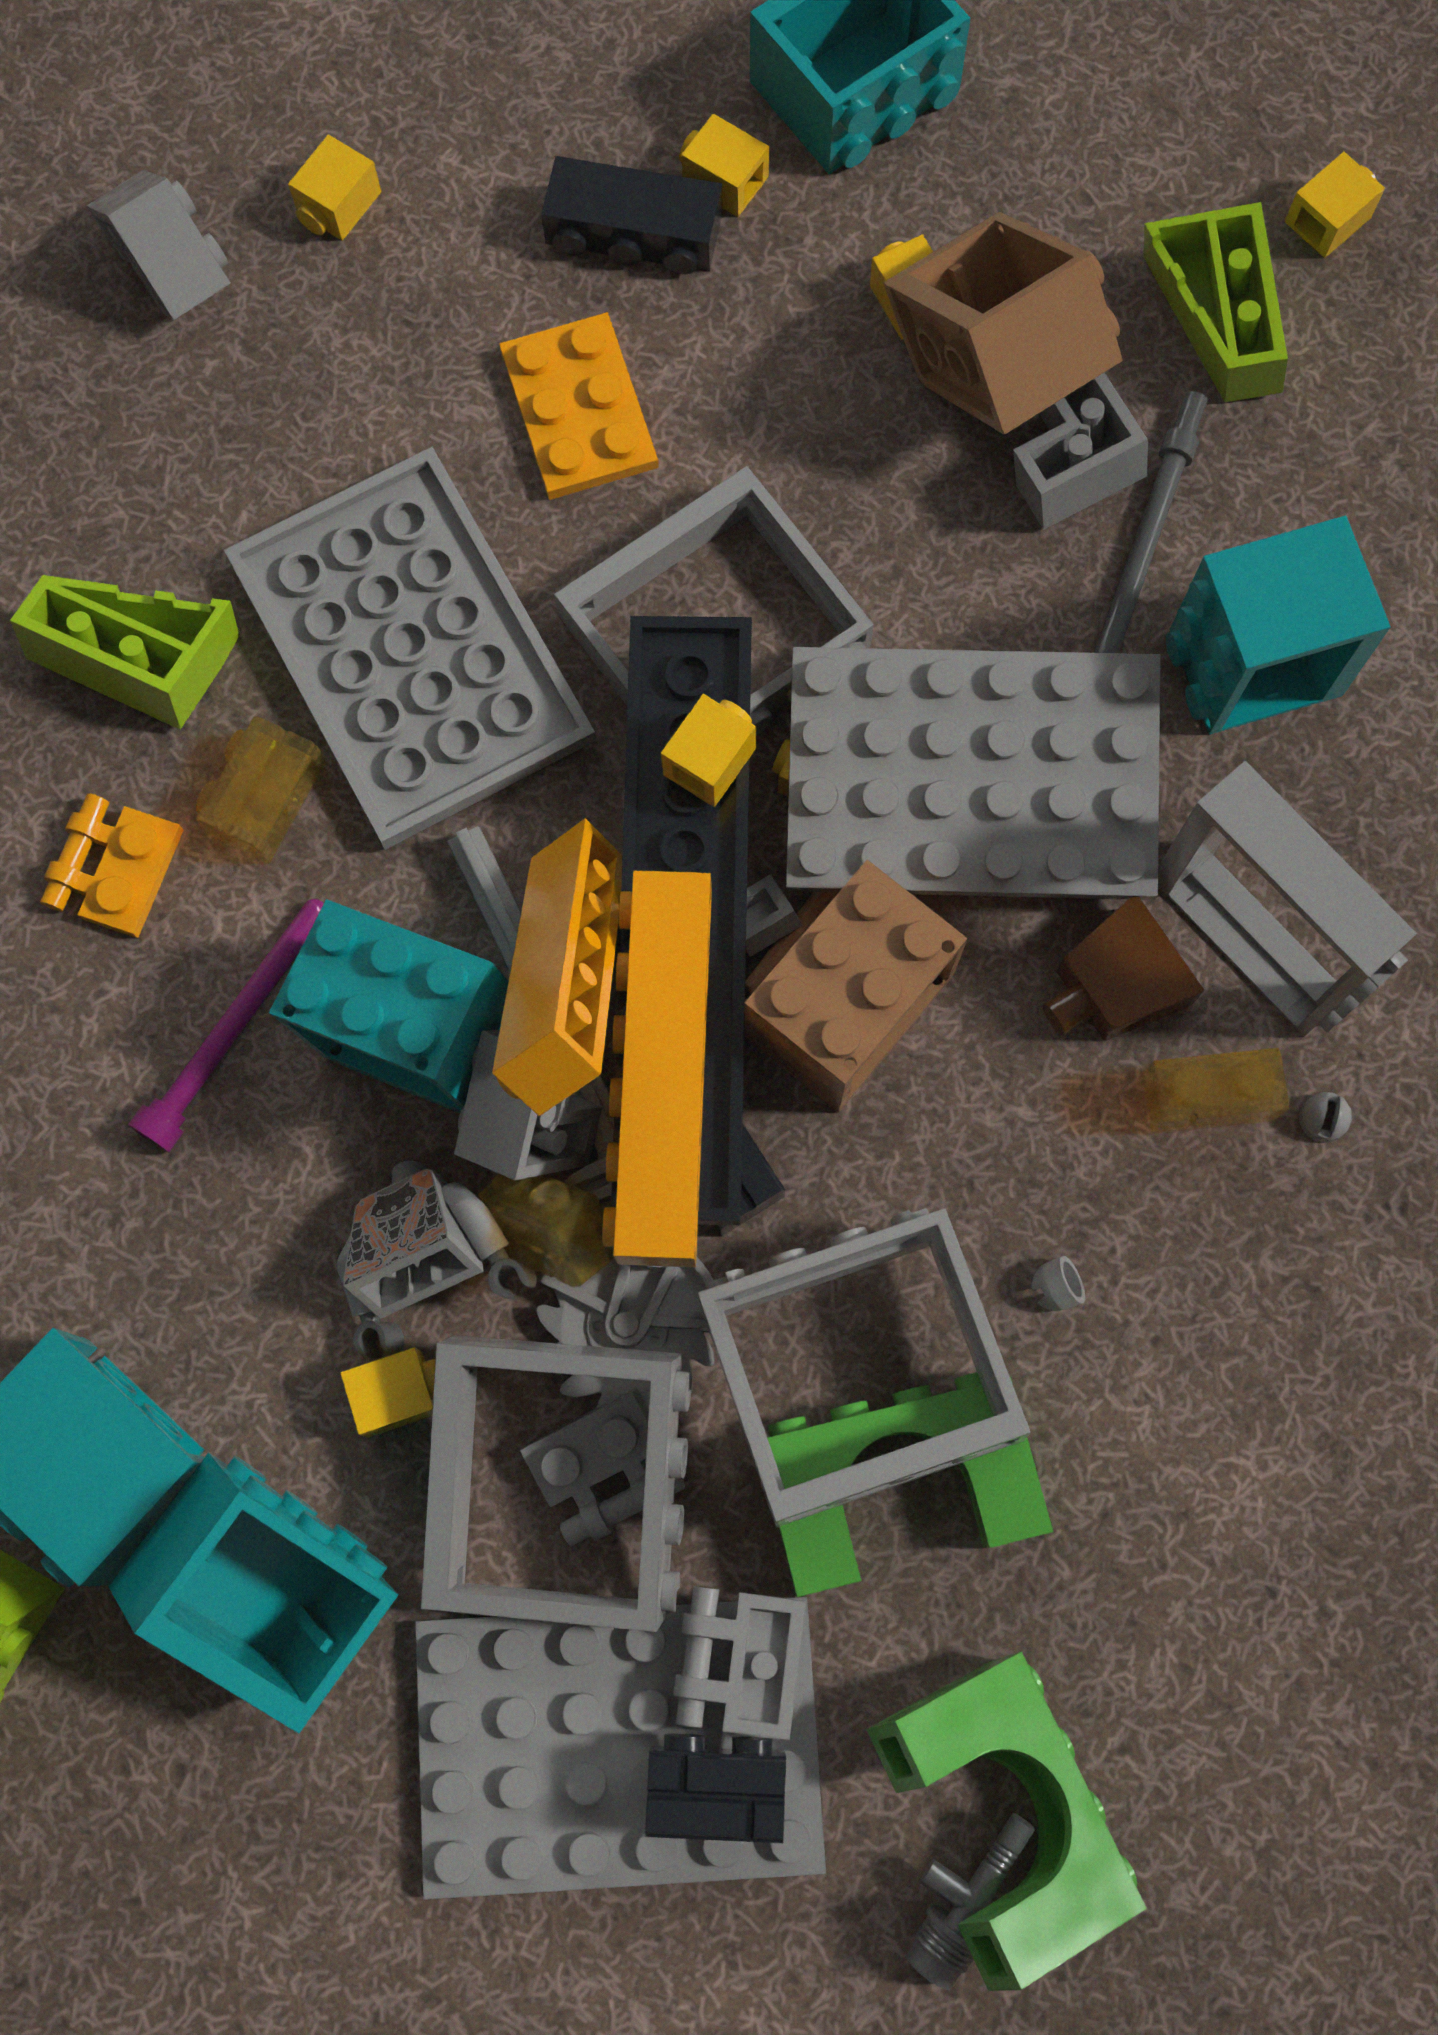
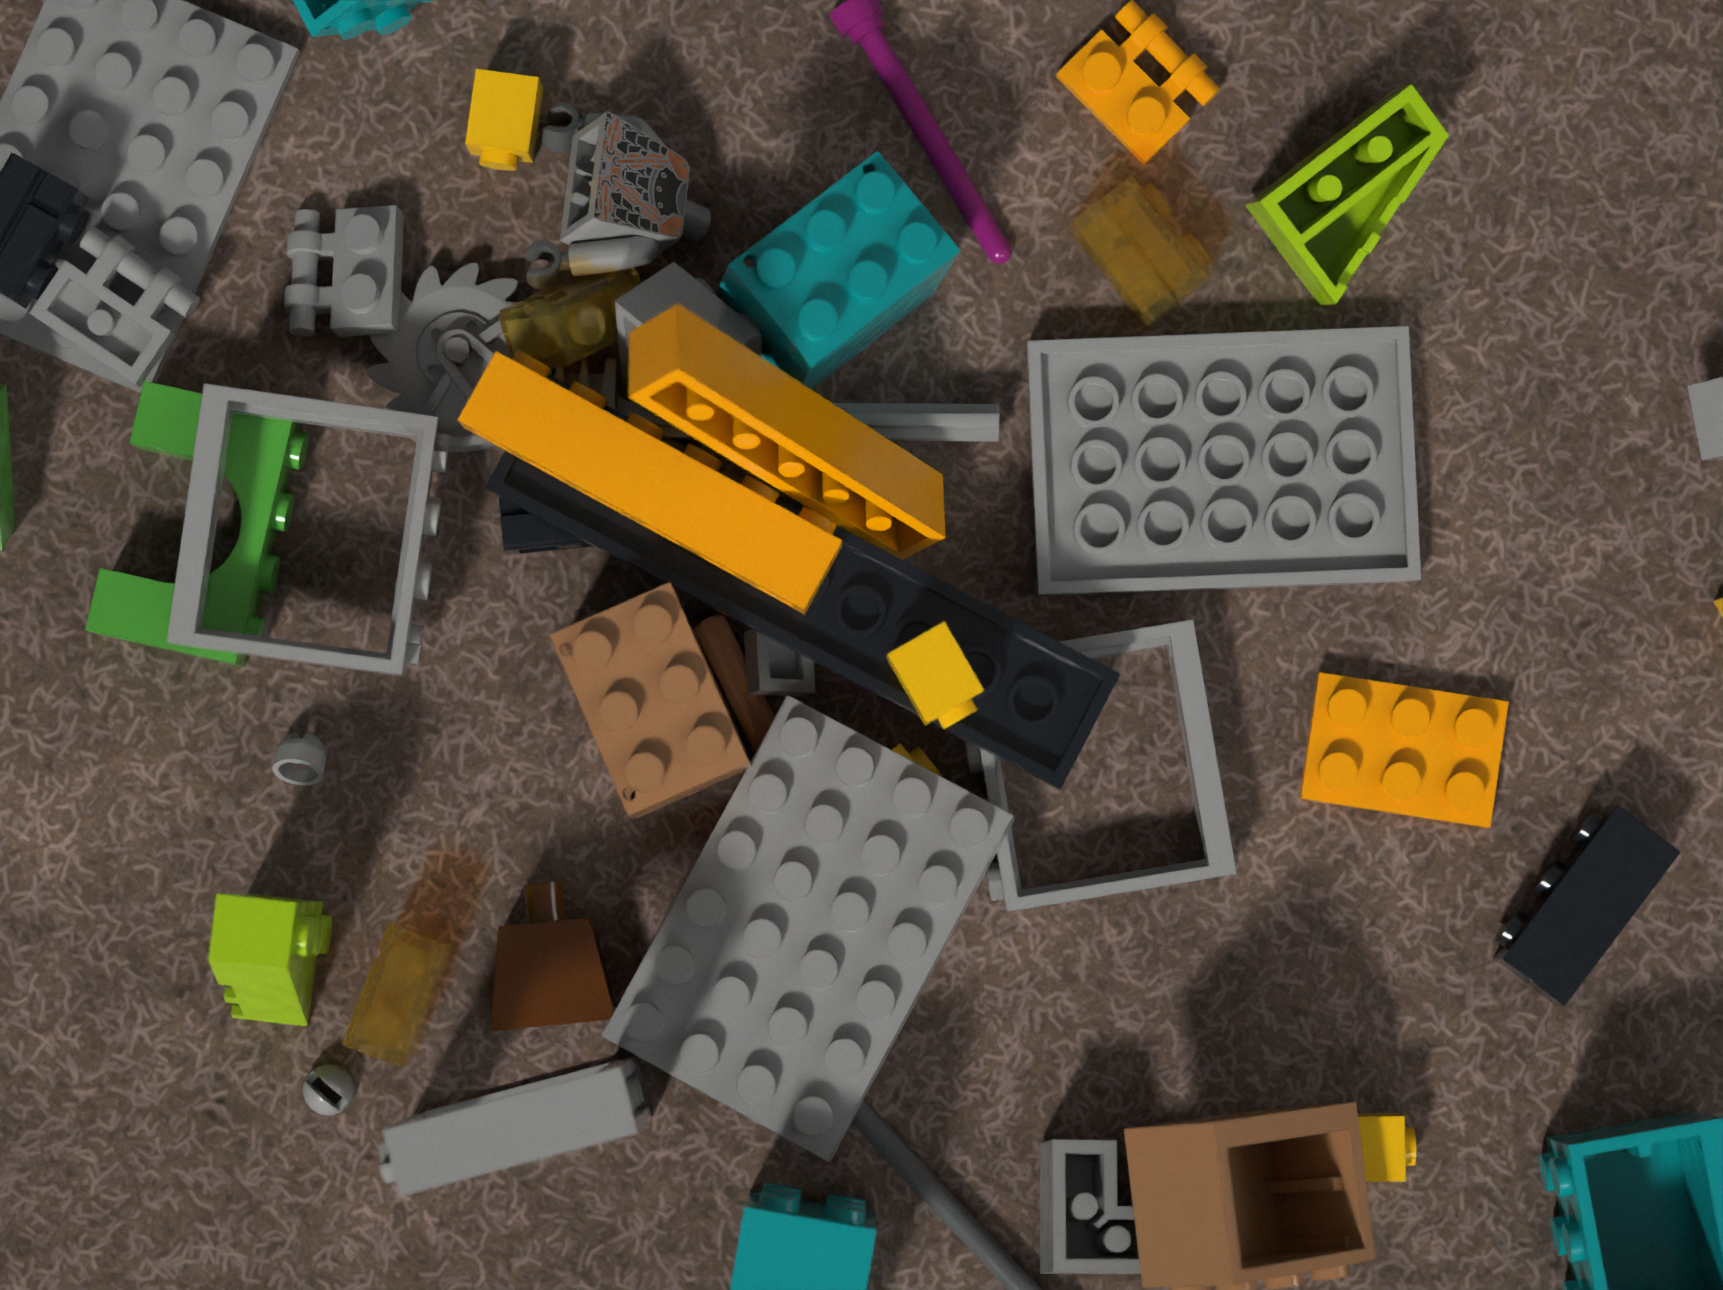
camera: 115 degrees right, 10 degrees up
(451, 1482) = (436, 283): light grey window -> none
(727, 157) = (1598, 1026): yellow brick -> none
(1237, 1210) = (268, 954): none -> lime wedge

